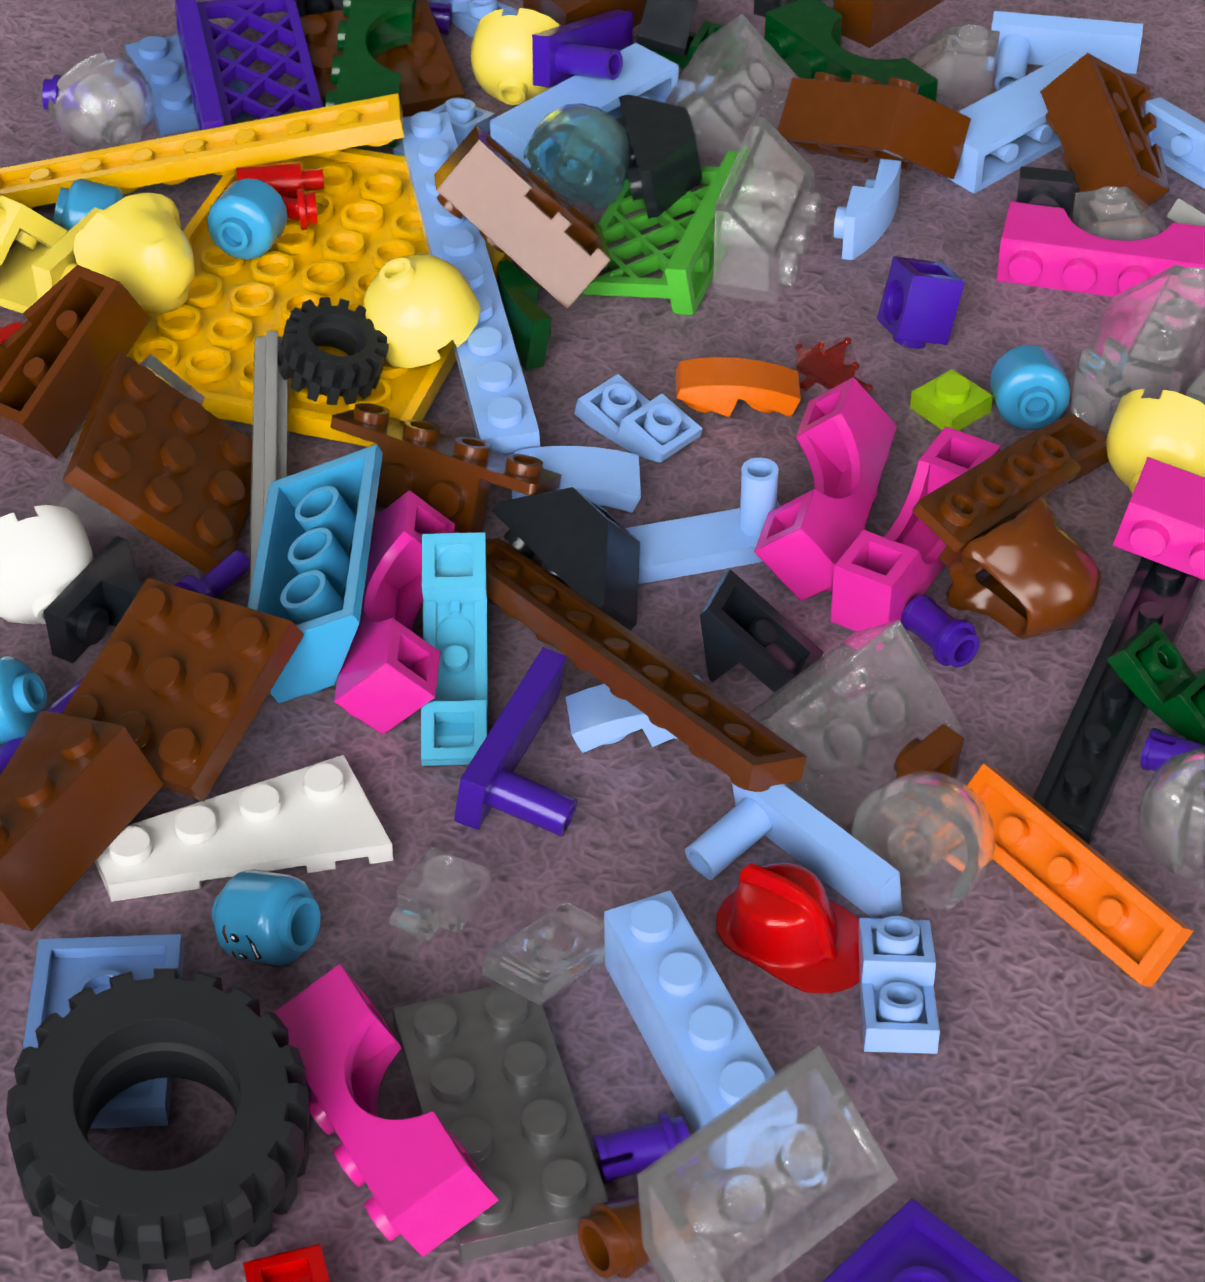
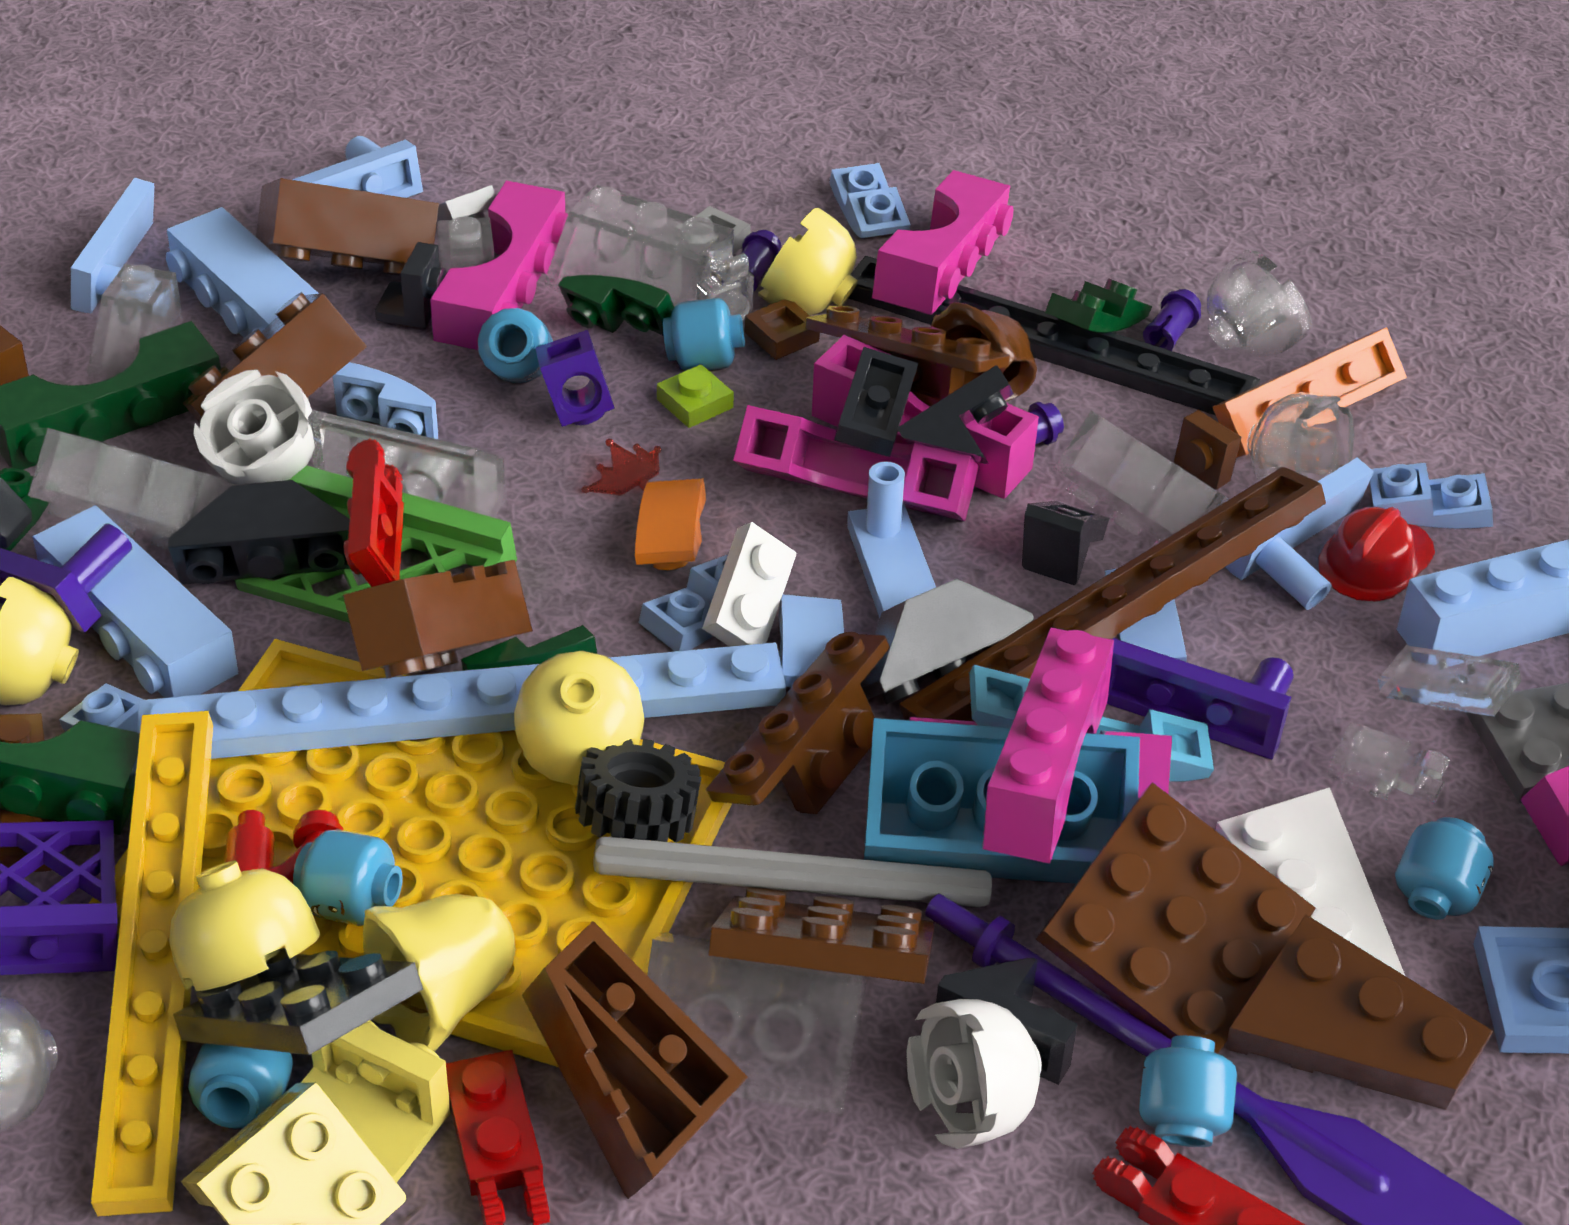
camera: 90 degrees left, 0 degrees up
(84, 181) = (298, 1002): none -> black plate
(178, 158) = (237, 925): none -> light yellow cylinder
(419, 568) = (1042, 748): none -> dark pink arch
(581, 154) = (263, 586): clear light blue cylinder -> none
(632, 422) = (749, 588): none -> white plate
(649, 179) = (374, 515): none -> red hinge
(781, 101) = (256, 428): none -> white cylinder
(835, 510) = (945, 422): none -> black slope
(886, 461) = (876, 402): none -> black slope
(975, 260) = (509, 344): none -> dark azure head
(1063, 325) = (611, 300): none -> dark green slope

